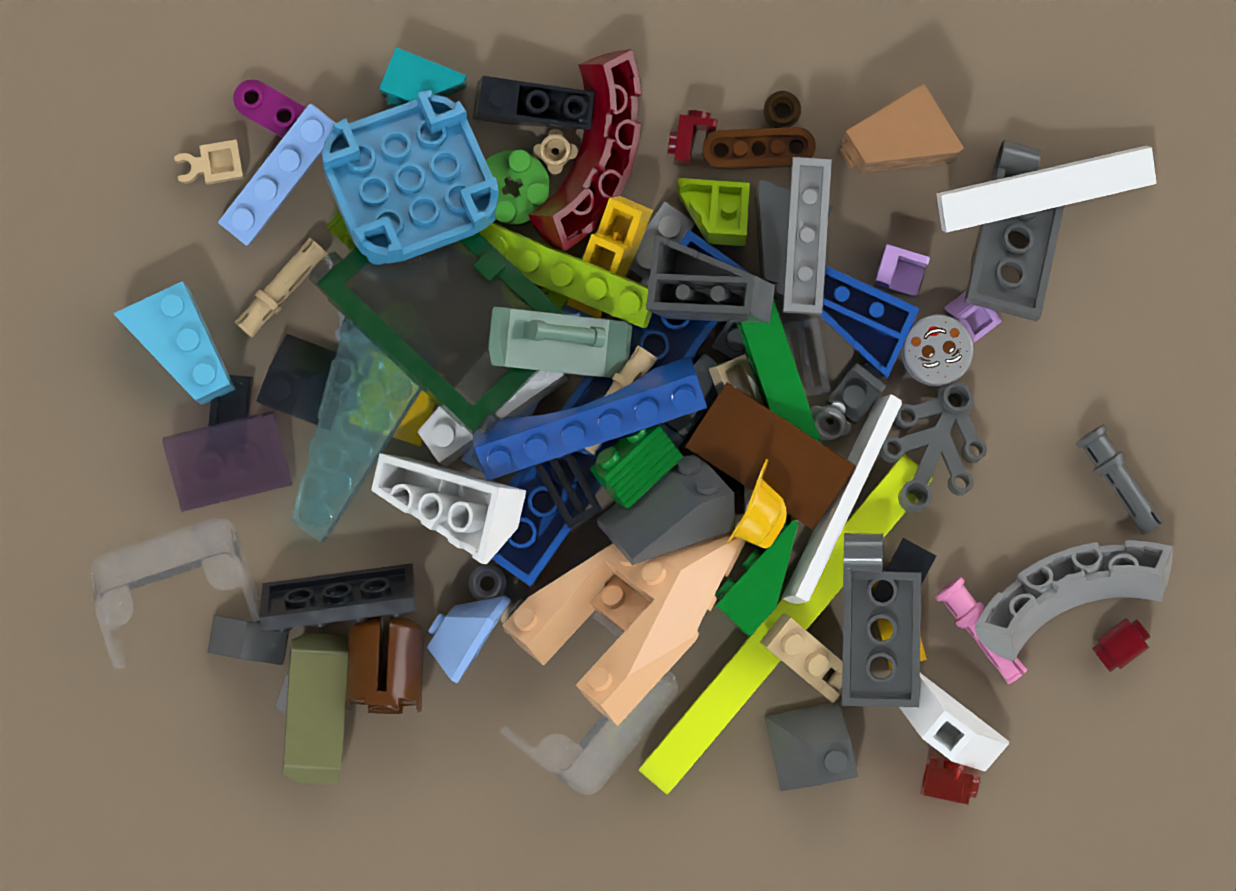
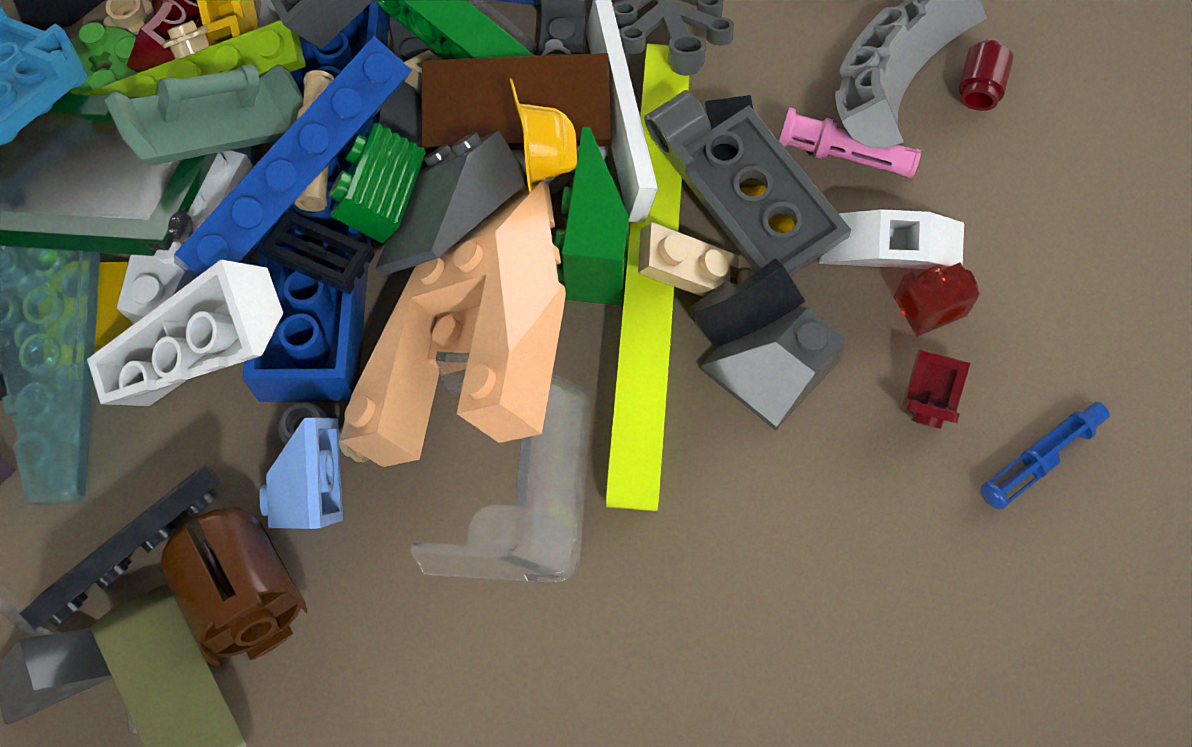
camera: 30 degrees left, 20 degrees down
(578, 249) = (186, 39): none -> tan plate
(806, 703) = (753, 304): none -> black slope
(894, 841) = (935, 388): none -> dark red bracket

